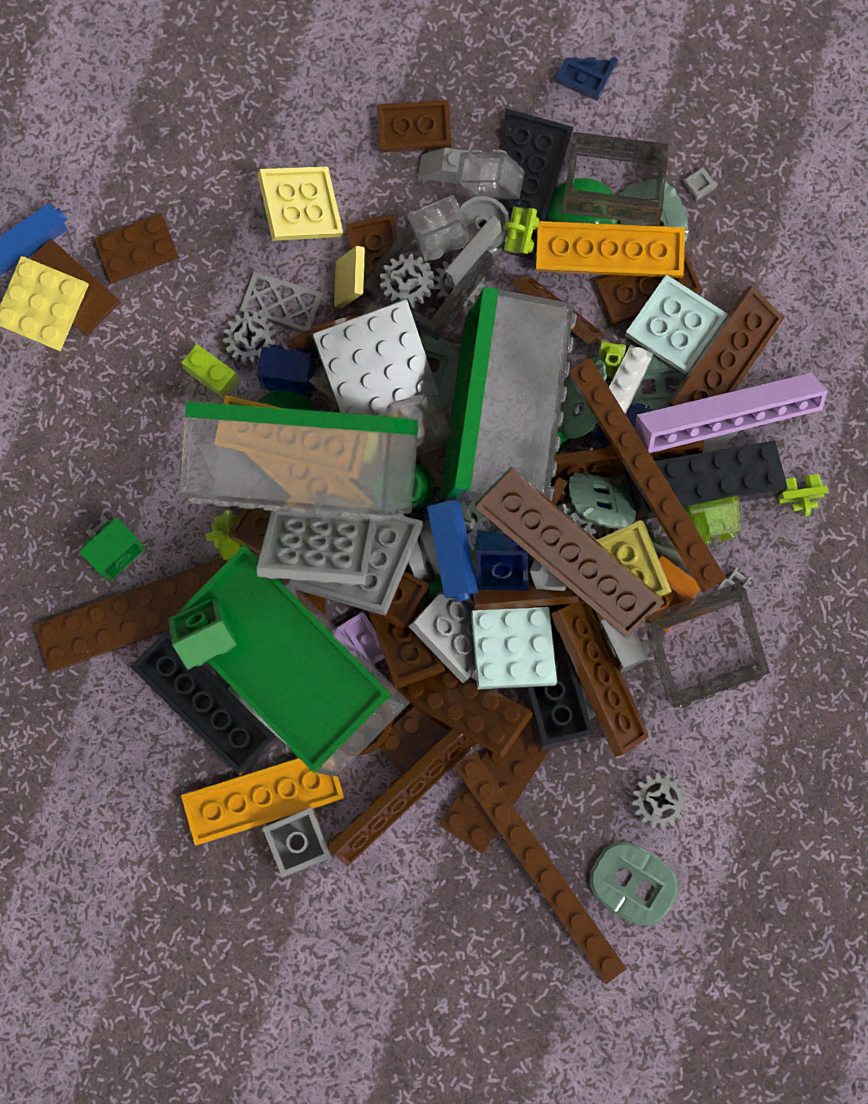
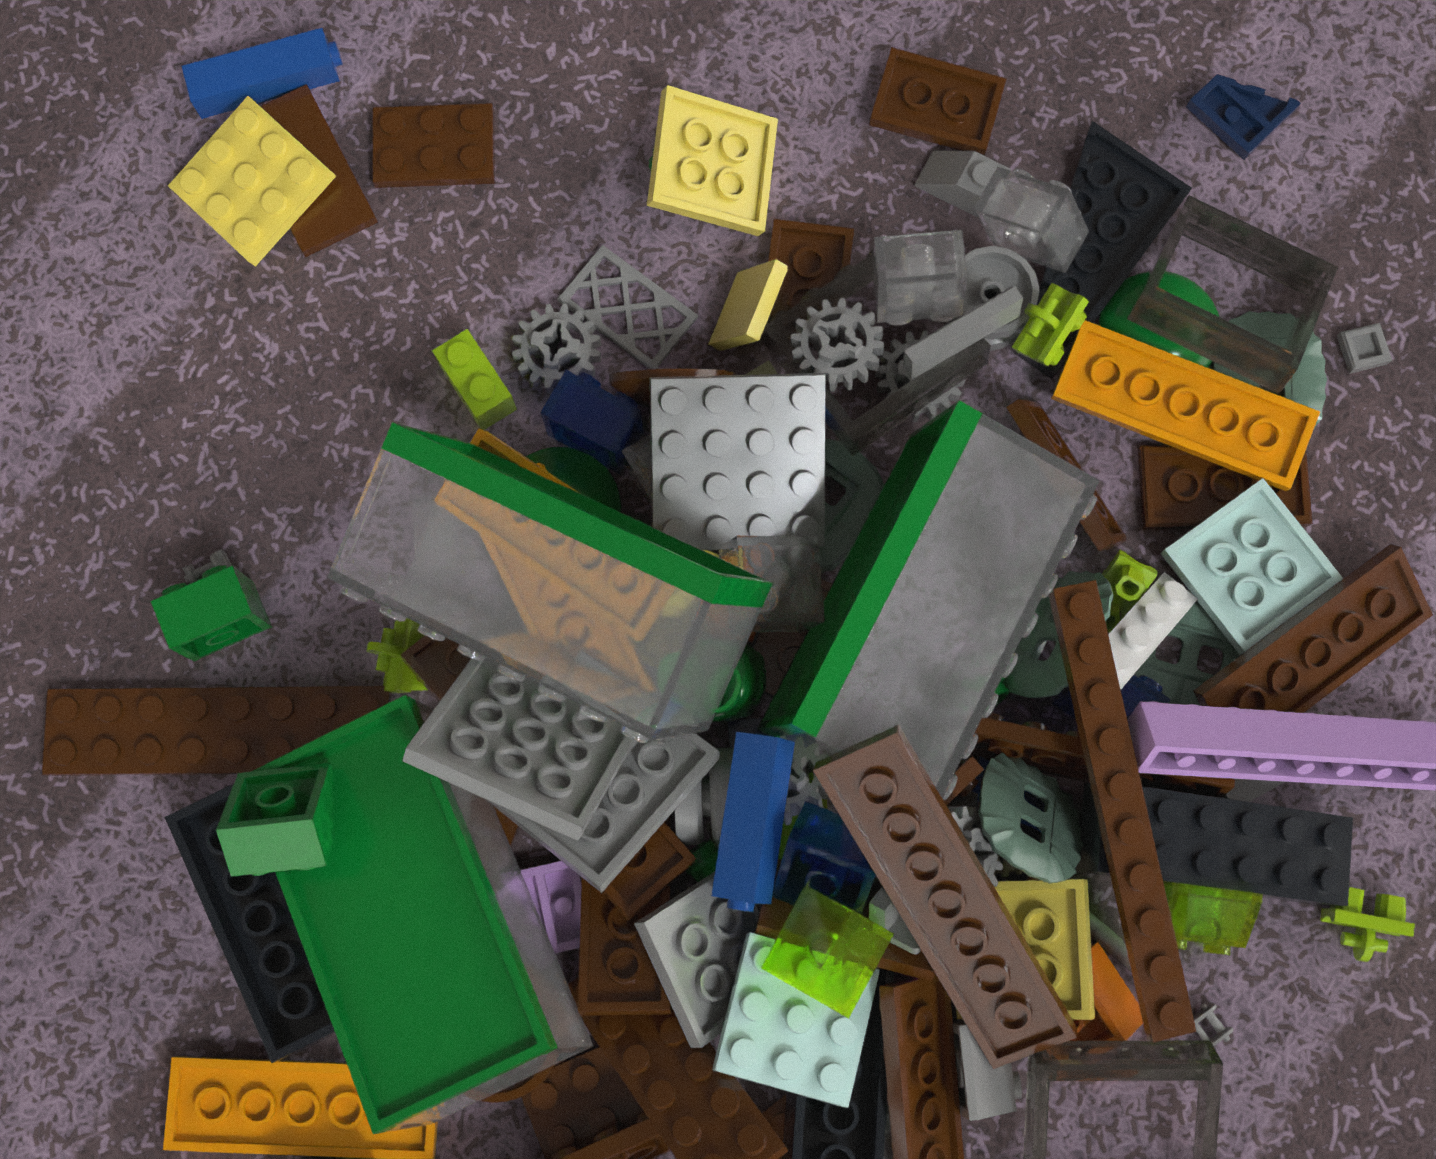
camera: 15 degrees right, 0 degrees up
(516, 603) = (827, 951): none -> clear neon green slope

